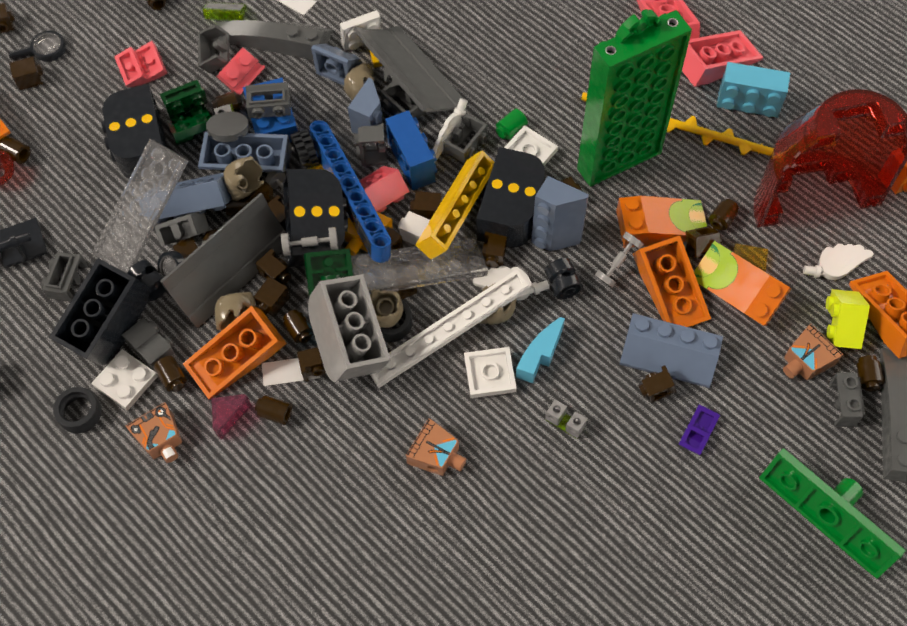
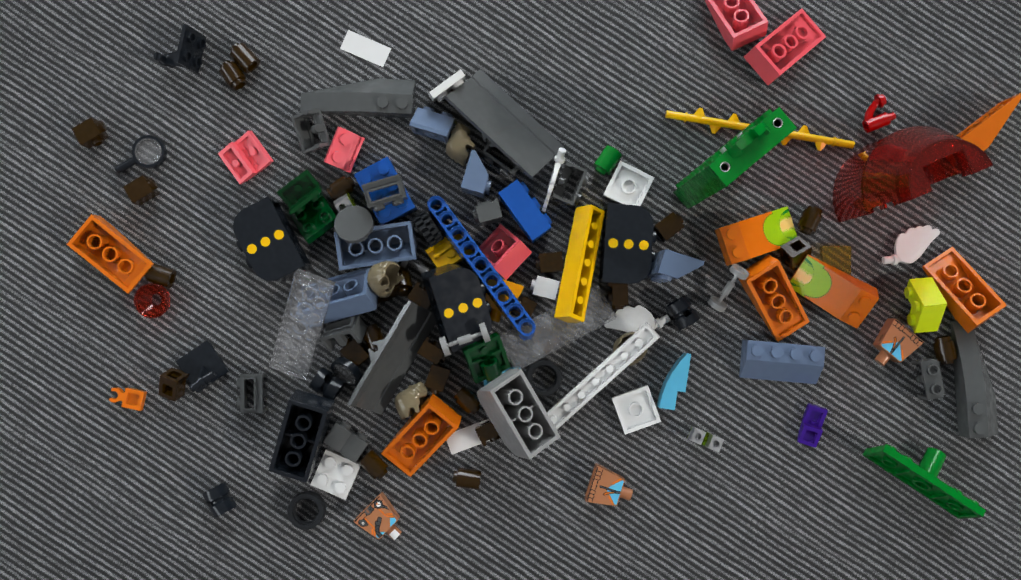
camera: 15 degrees left, 25 degrees up
(224, 11) = (306, 78): clear neon green slope -> none
(227, 412) = (429, 488): clear pink slope -> none
(387, 307) = (541, 378): dark tan hair -> none
(657, 385) = (775, 396): dark brown brick -> none
(753, 89) = (824, 85): medium azure brick -> none

